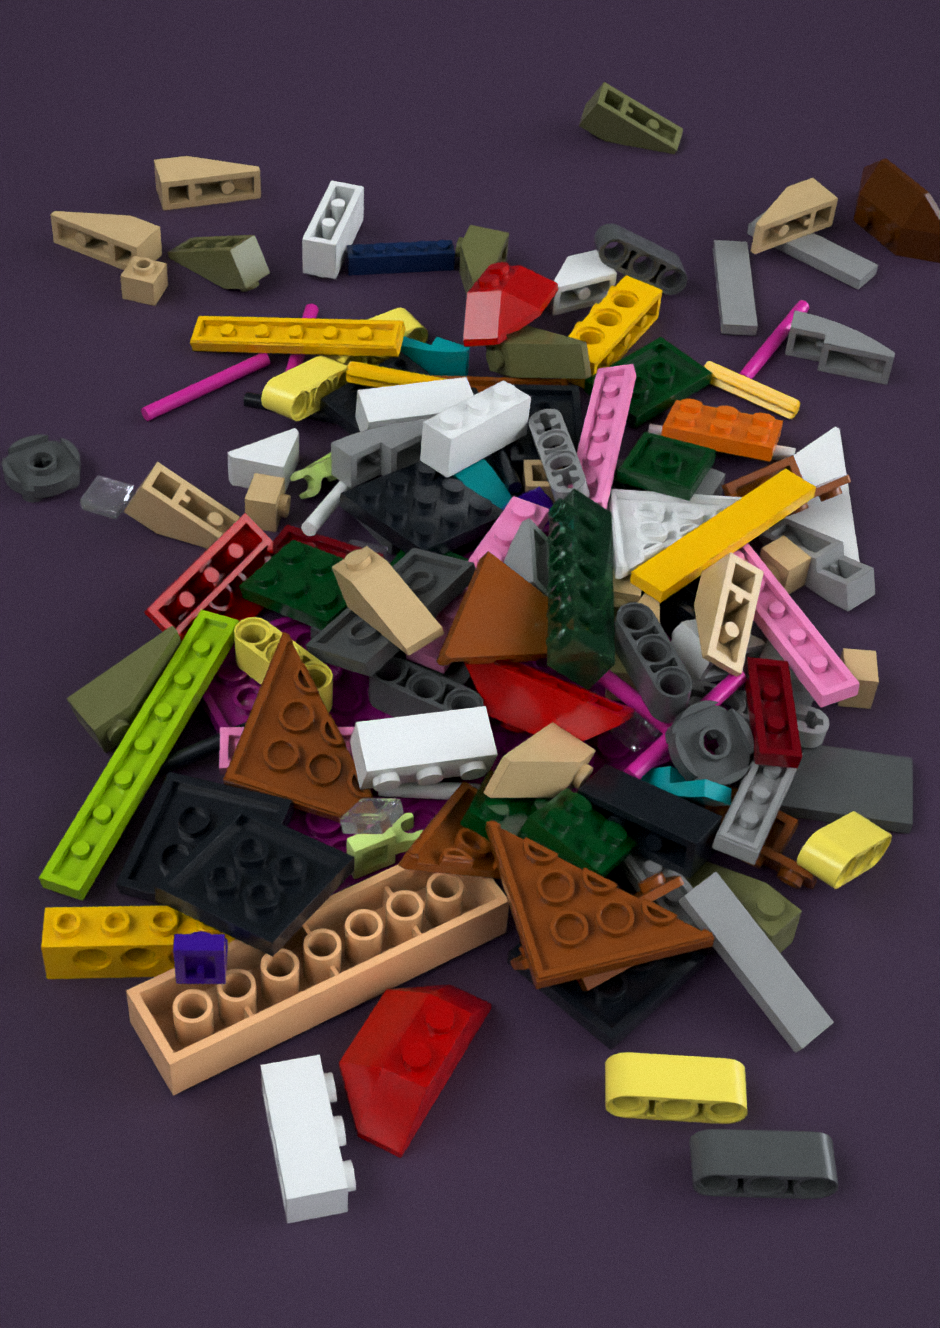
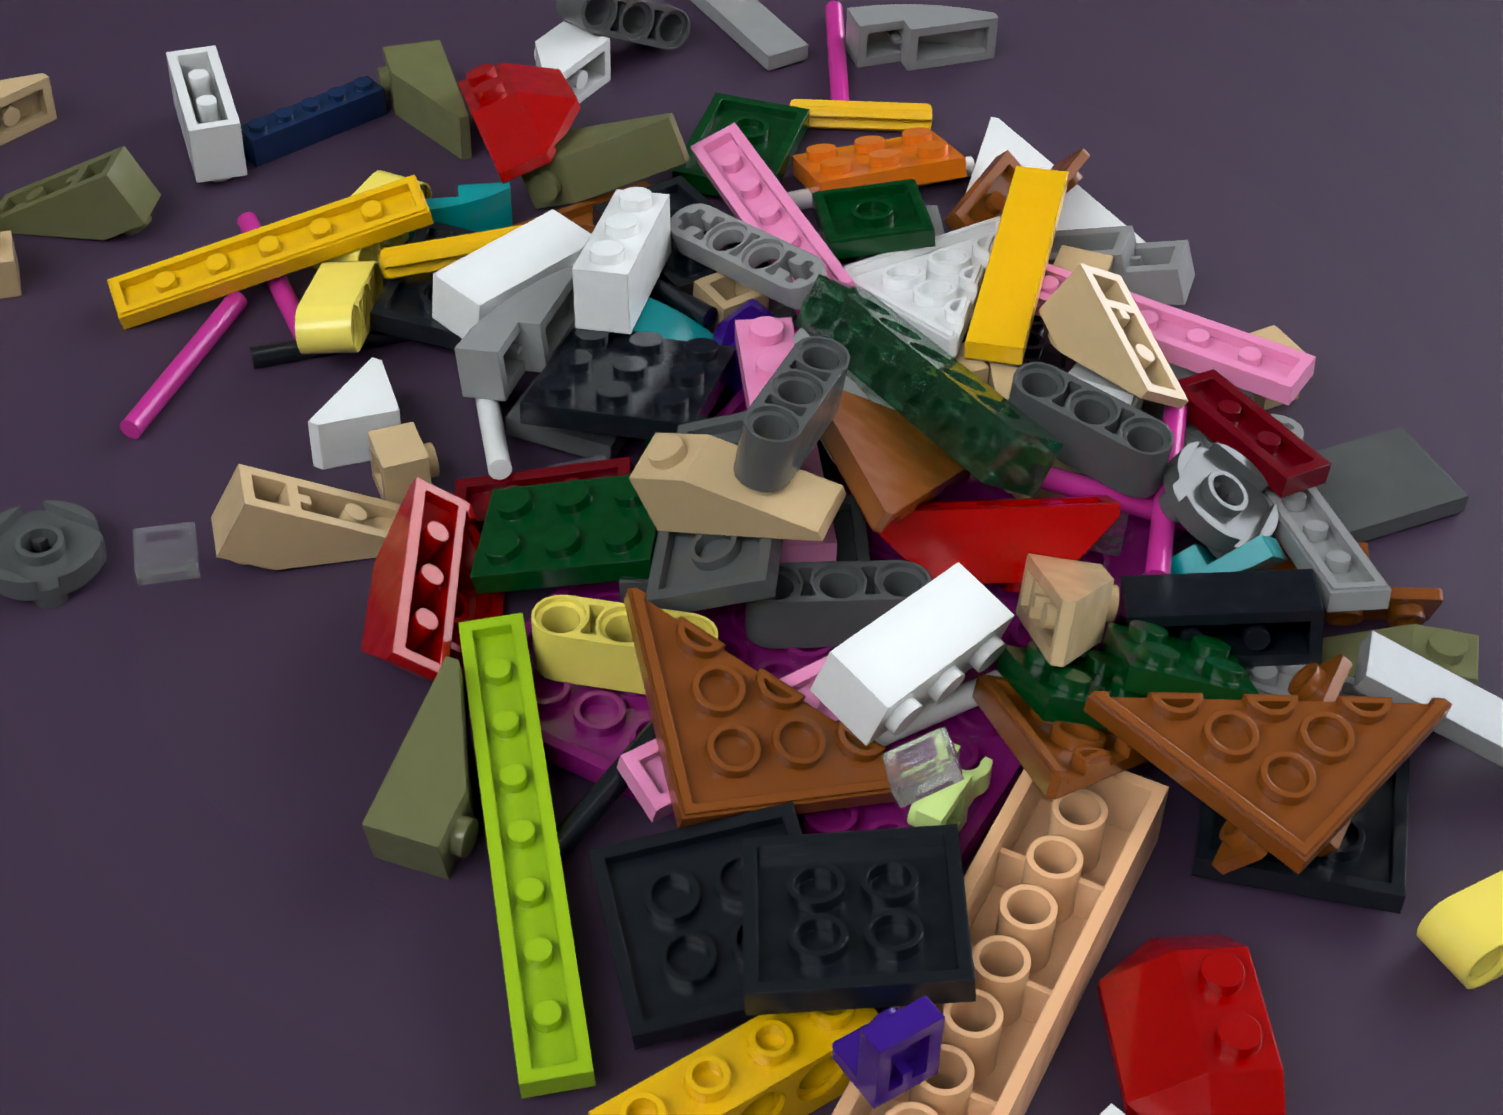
camera: 30 degrees left, 5 degrees down
(314, 474) = (436, 399): yellowish green plate -> none
(437, 569) = (791, 414): none -> dark grey beam
(617, 322) = (646, 84): yellow brick -> none
(844, 849) = (1448, 550): light yellow beam -> none

